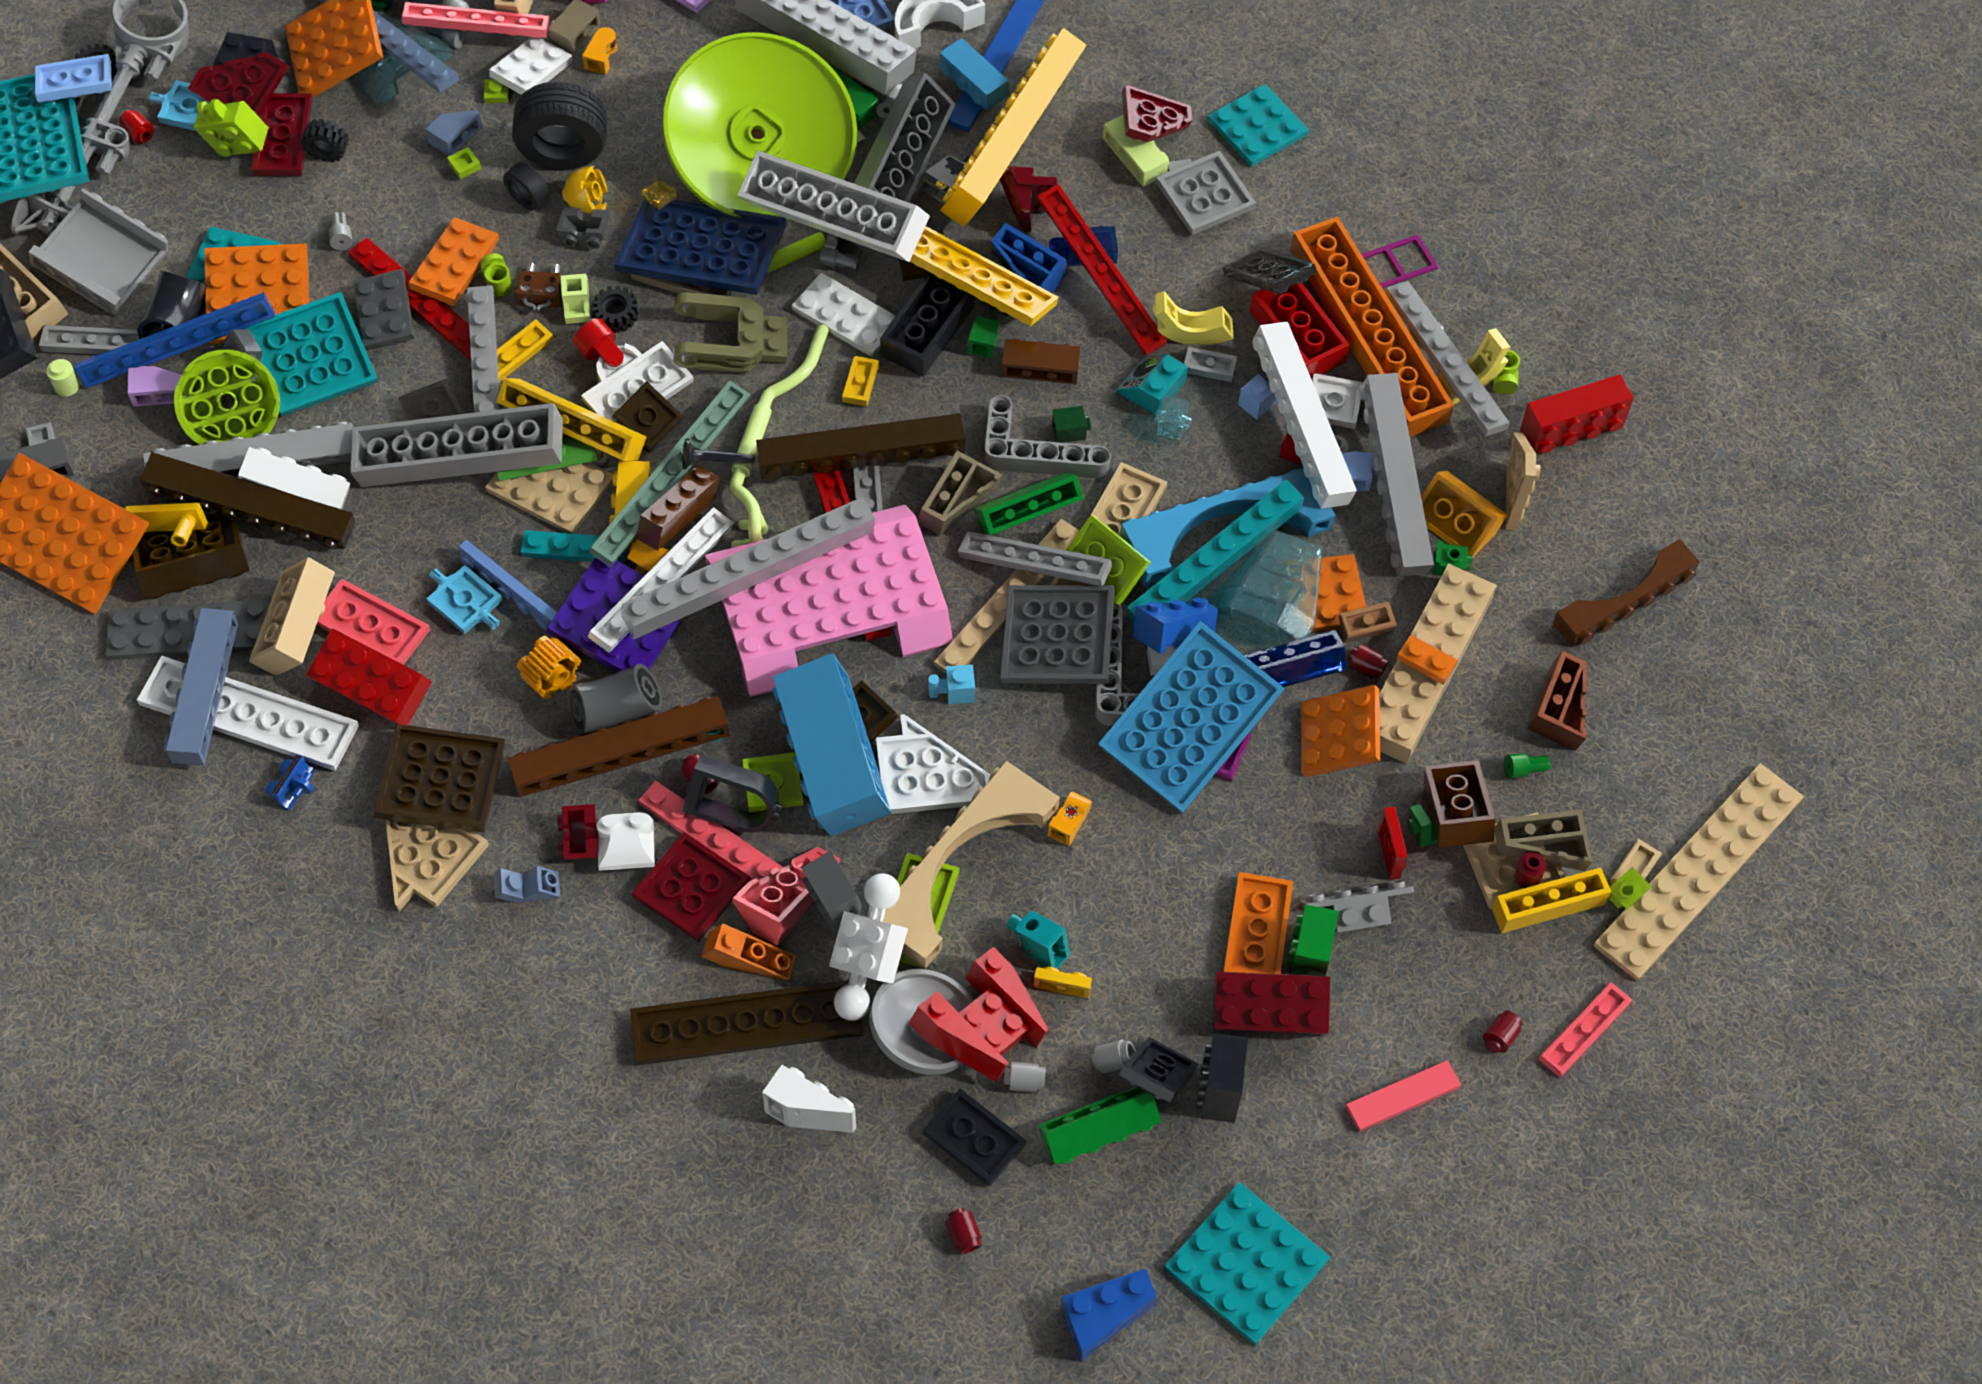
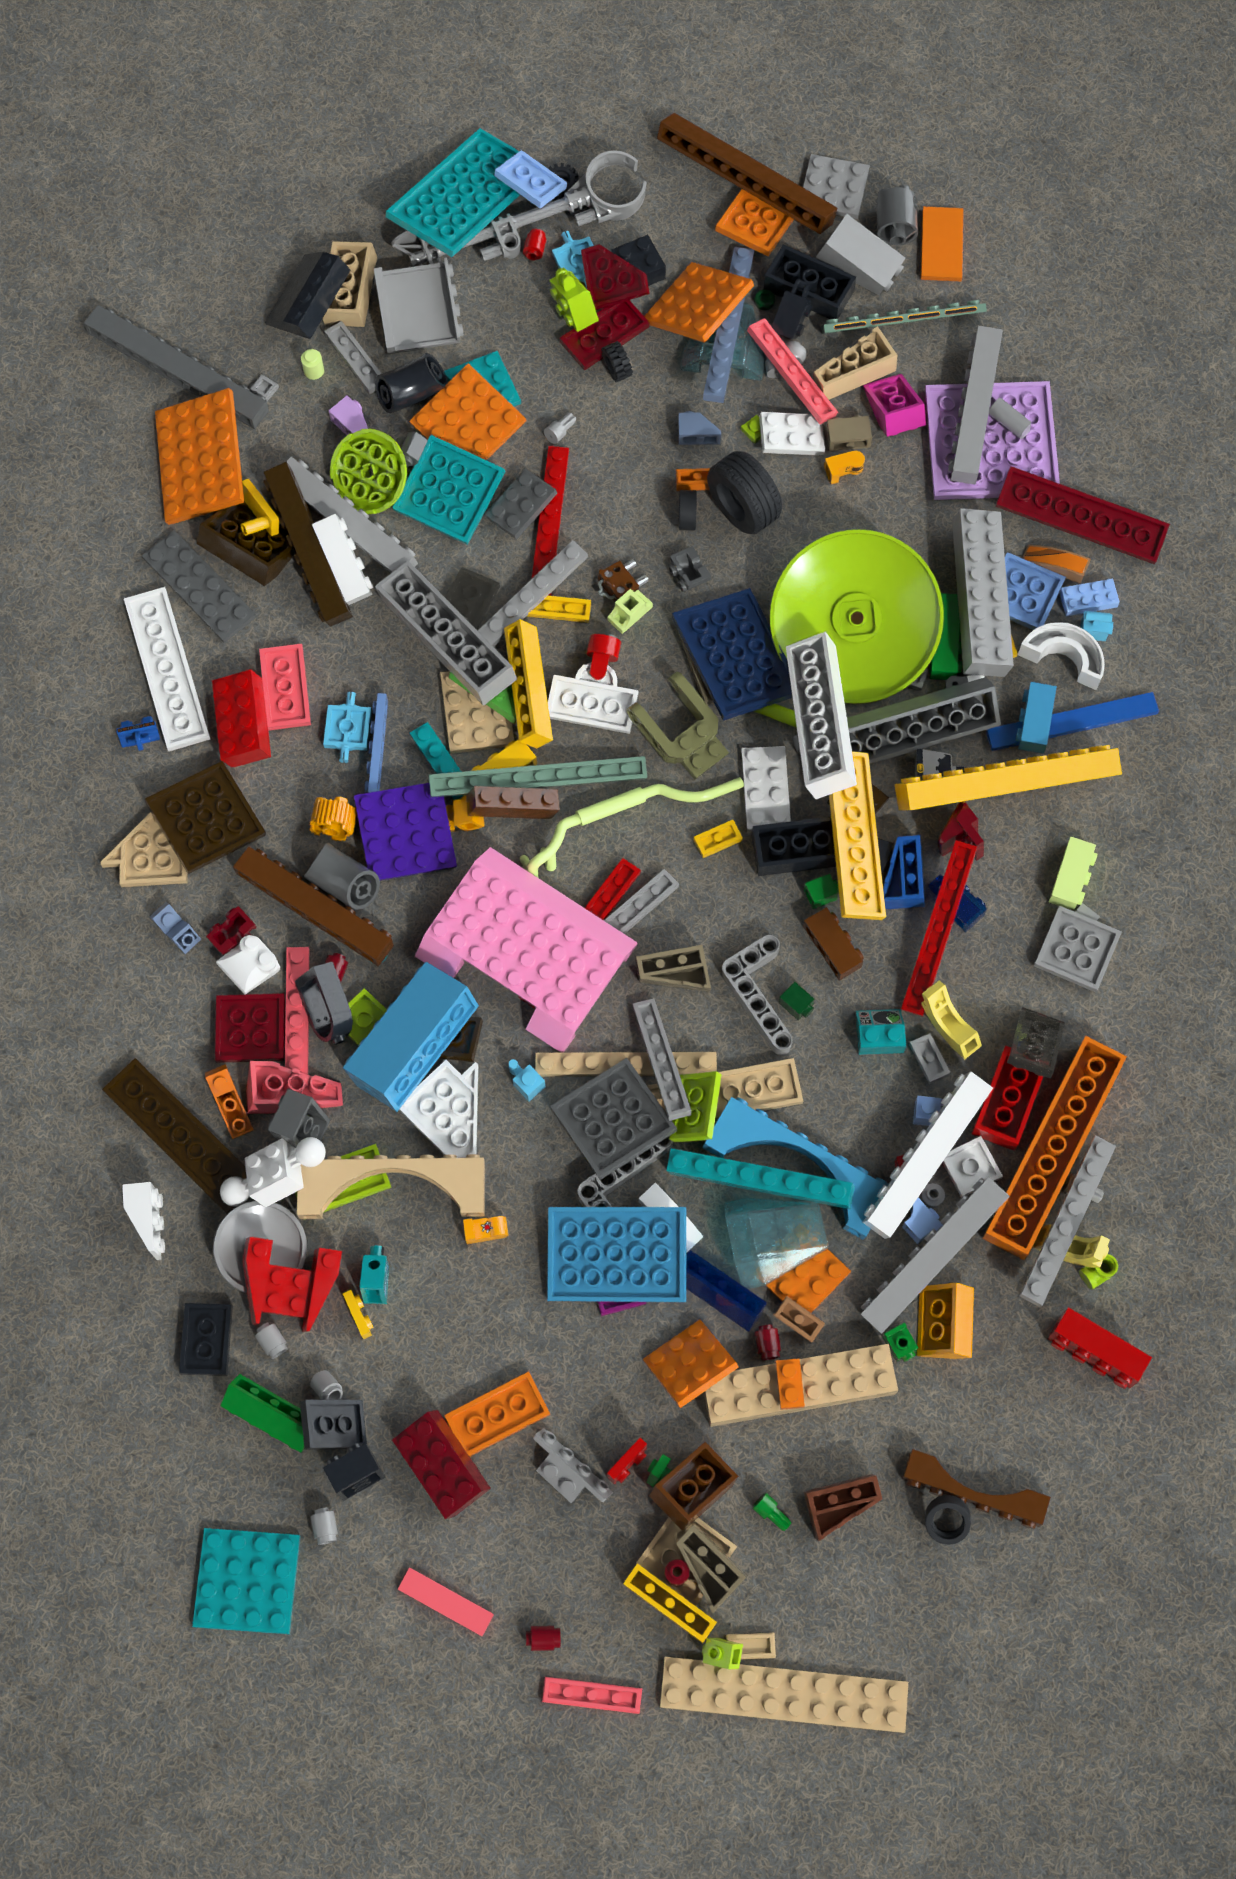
camera: 55 degrees right, 10 degrees up
(174, 340) = (387, 405): blue tile -> none
(201, 687) = (157, 628): sand blue brick -> none
(292, 616) = (246, 638): tan brick -> none
(453, 261) = (594, 514): orange plate -> none
(464, 163) = (678, 457): lime plate -> none
(496, 274) = (610, 543): lime piece -> none
(502, 160) = (692, 479): none -> orange brick
(583, 188) = (717, 547): yellow cylinder -> none
(613, 297) = (638, 630): black tyre -> none
(648, 415) = (574, 727): dark brown tile -> none
(659, 194) = (752, 596): clear yellow plate -> none
(671, 567) = (451, 835): white plate -> none
(693, 454) = (570, 792): black piece -> none
(747, 568) = (487, 884): light grey brick -> none
(860, 446) = (658, 880): dark brown brick -> none
(963, 1231) = (135, 1380): dark red brick -> none
(1028, 503) = (706, 1021): green brick -> none
(1106, 1309) = (143, 1512): blue wedge -> none
(1152, 115) = (1107, 863): dark red plate -> none
(1170, 623) = (677, 1186): blue wedge -> none
(1173, 418) = (858, 1067): clear light blue brick -> none
(1248, 1152) = (324, 1526): none -> light grey brick
(1258, 125) = (1174, 941): teal plate -> none
(1312, 941) = (506, 1460): green brick -> none
(1387, 249) = (1127, 1139): magenta window -> none
(1520, 479) = (1004, 1343): tan wing -> none
(1656, 625) = (947, 1537): none -> black tyre

